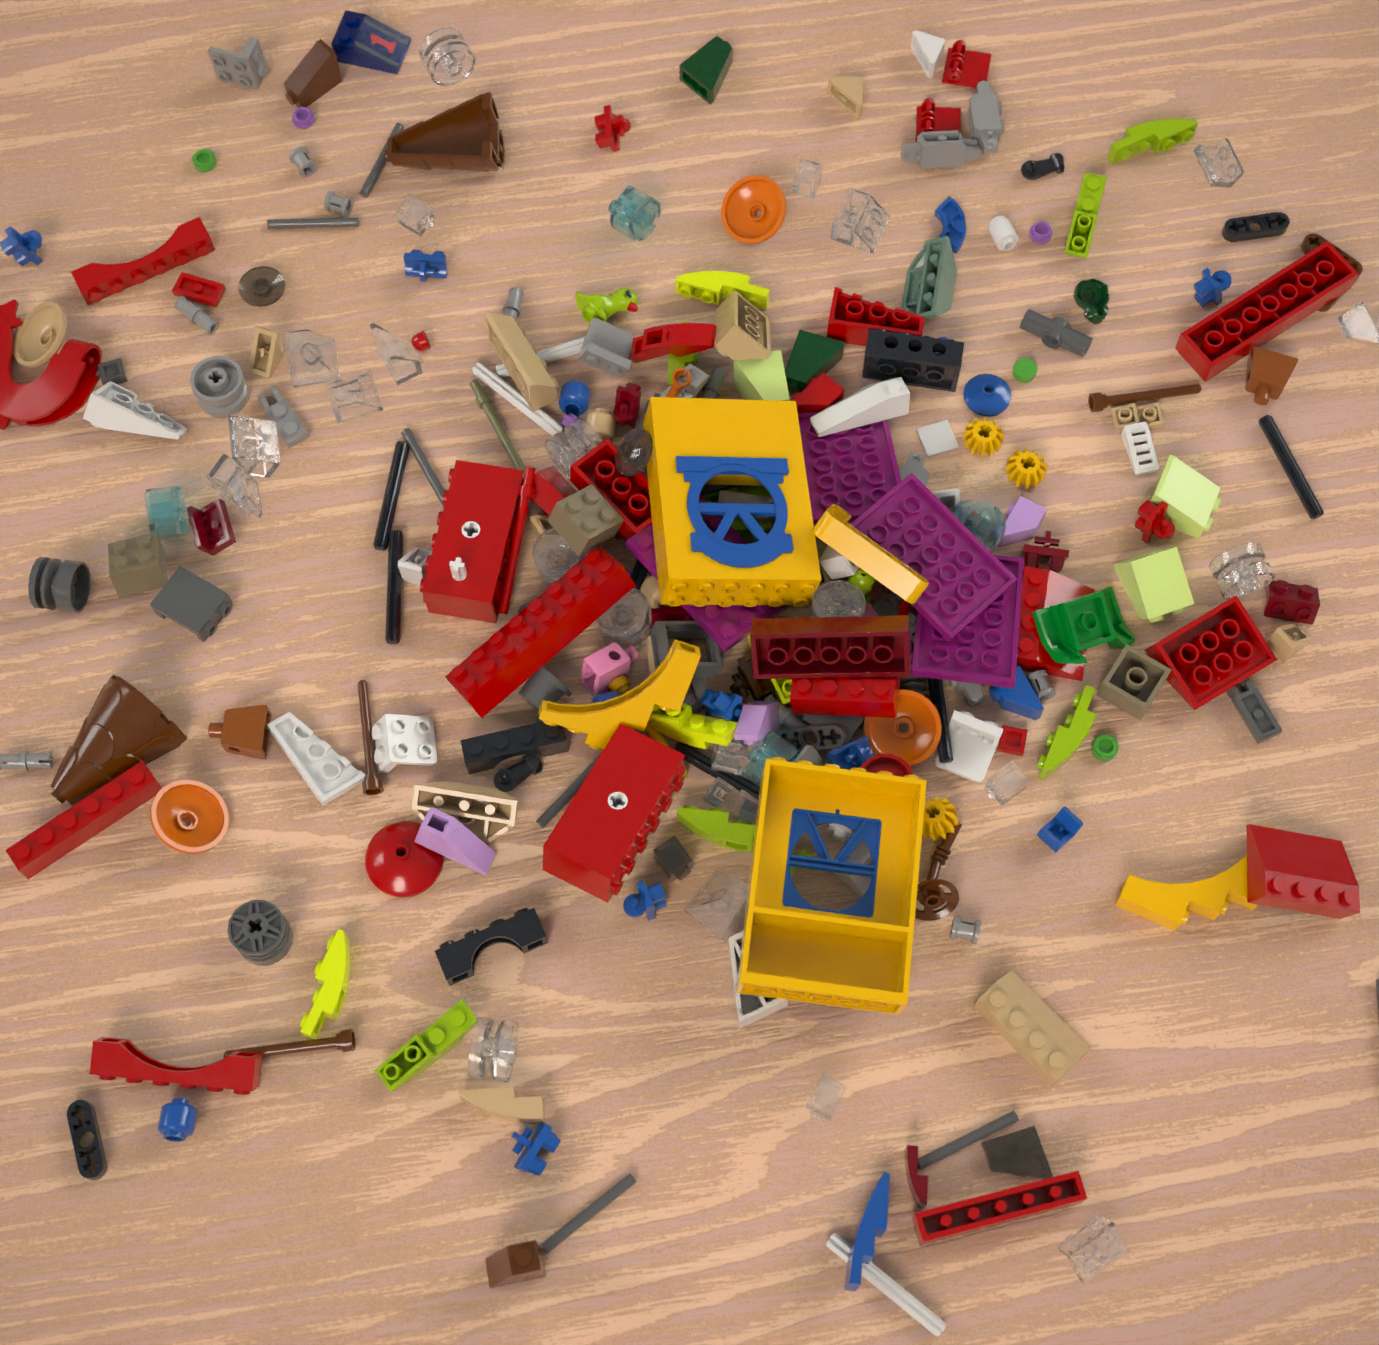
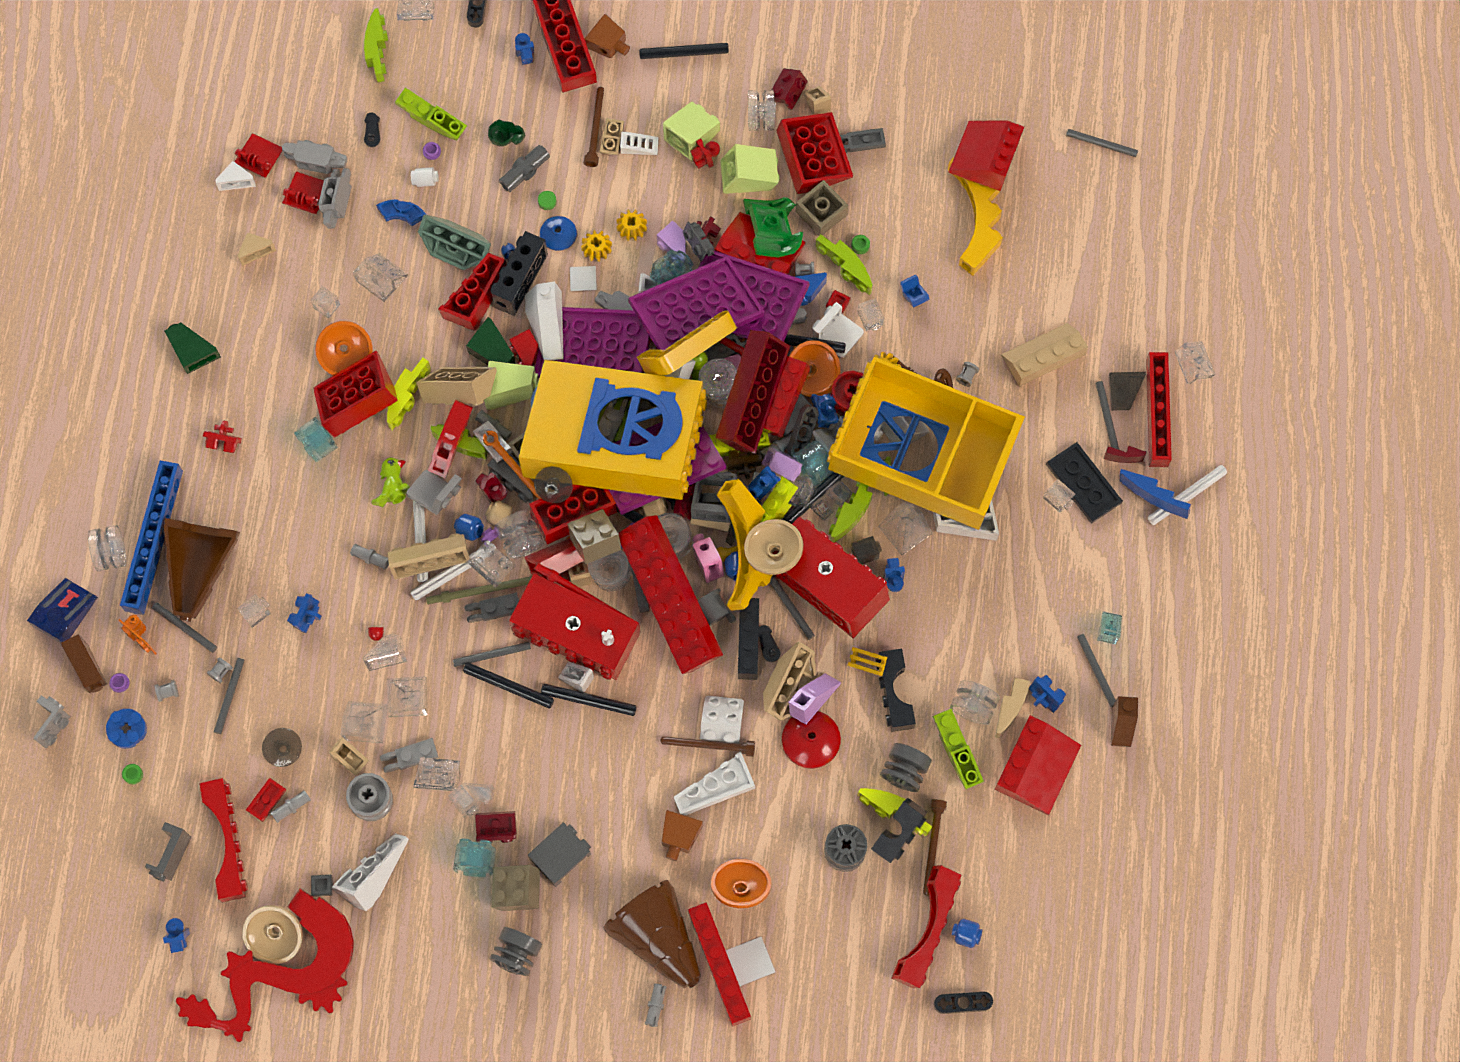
camera: 75 degrees left, 5 degrees up
(101, 859) = (750, 961): none -> white sticker
(116, 215) = (172, 854): none -> dark grey panel
(252, 129) = (132, 737): none -> blue plate
(282, 990) = (910, 817): none -> black arch
(356, 111) = (135, 629): none -> orange hinge
(377, 980) = (905, 768): none -> dark grey wheel
(430, 1161) = (1038, 765): none -> red slope
(437, 96) = (151, 538): none -> blue brick
(481, 450) = (493, 608): none -> dark grey hinge
(514, 898) = (854, 657): none -> yellow tile
(532, 430) = (491, 563): none -> clear bracket
(629, 715) = (771, 537): none -> tan dish
(654, 1215) = (1109, 628): none -> clear light blue slope
(699, 235) = (354, 394): none -> red slope
(859, 1130) = (1080, 475): none -> black tile
(1020, 547) = (693, 234): none -> dark grey hinge

